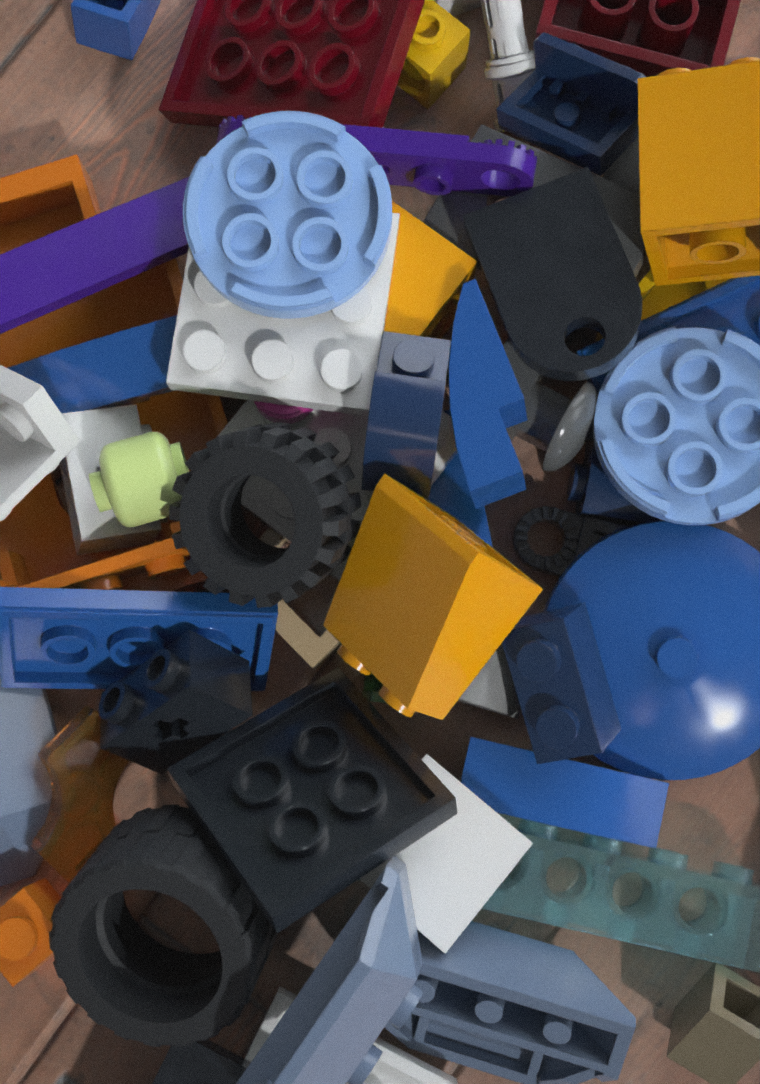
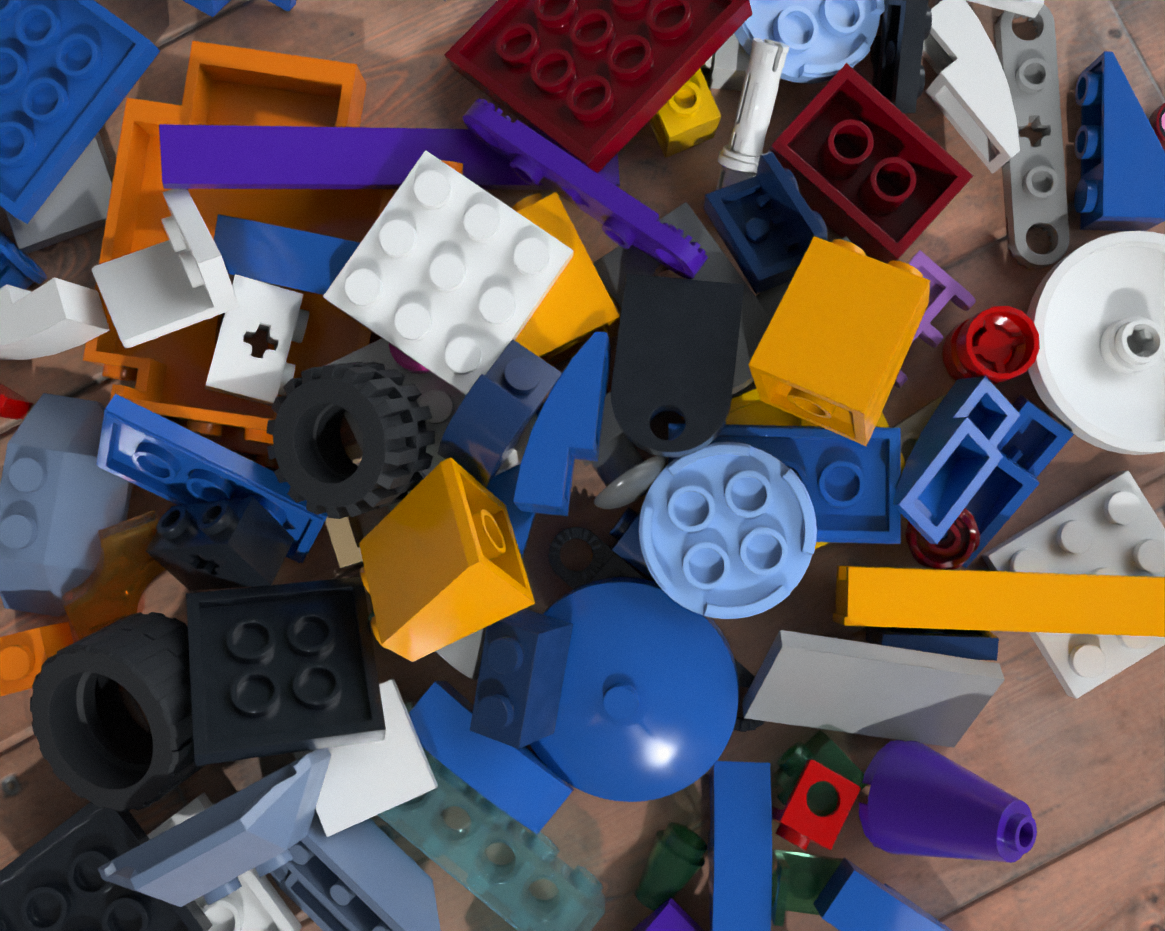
camera: 25 degrees right, 5 degrees up
(138, 478) = (270, 357): yellowish green head -> none
(288, 215) = (480, 210): light blue tile -> none

